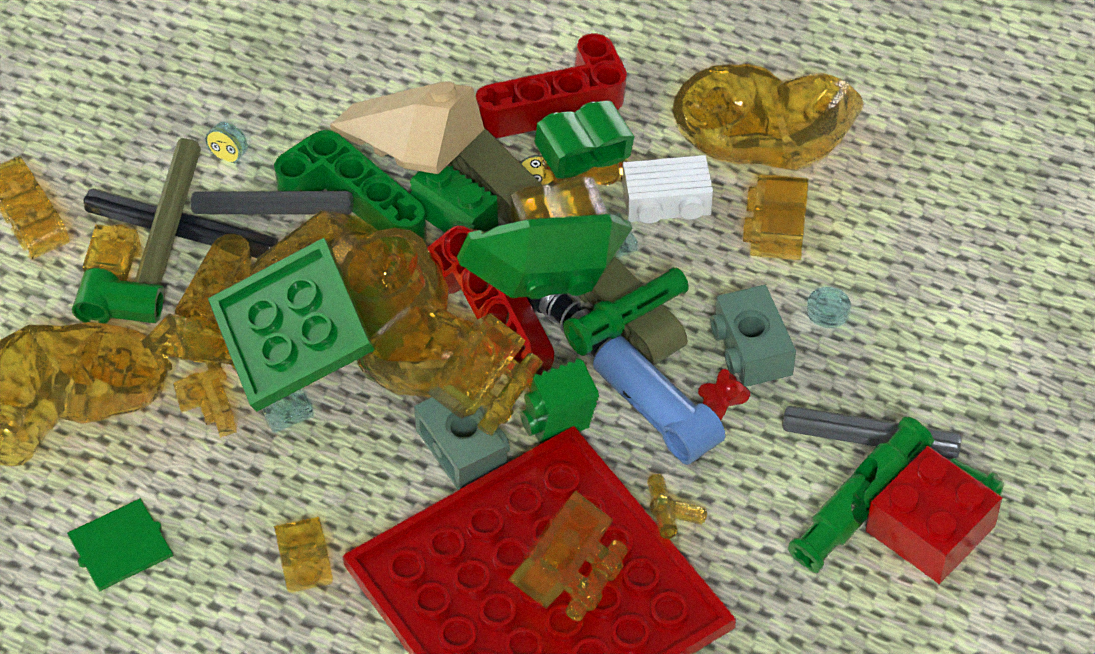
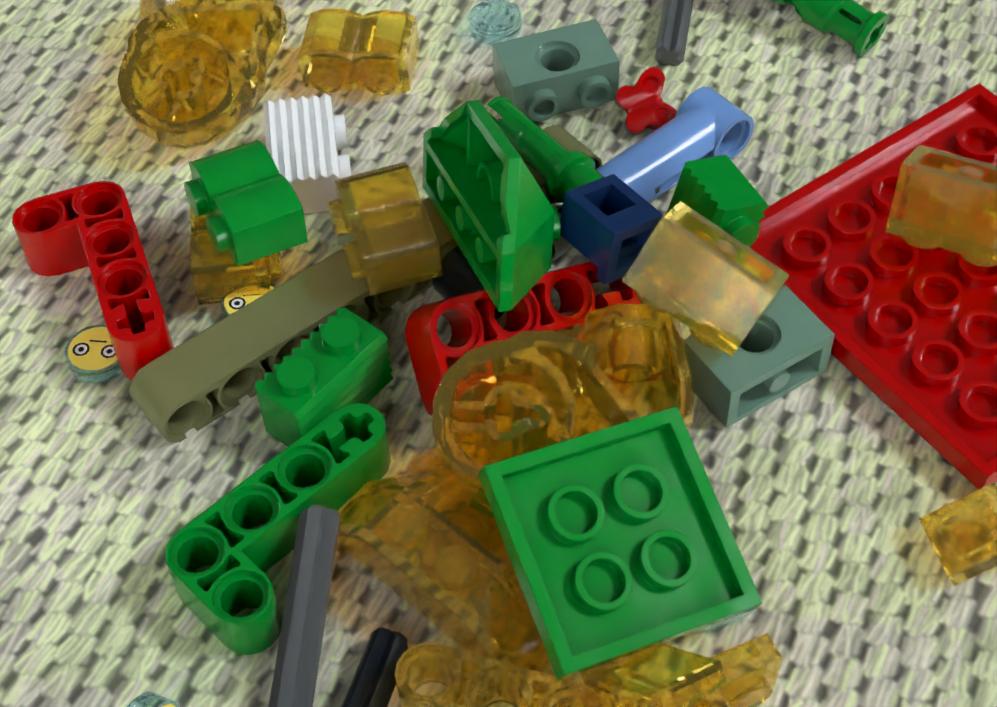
camera: 90 degrees left, 0 degrees up
(415, 126) = (182, 415): tan wedge -> none
(532, 308) = (607, 224): none -> dark blue brick
(668, 509) = (829, 148): clear yellow piece -> none

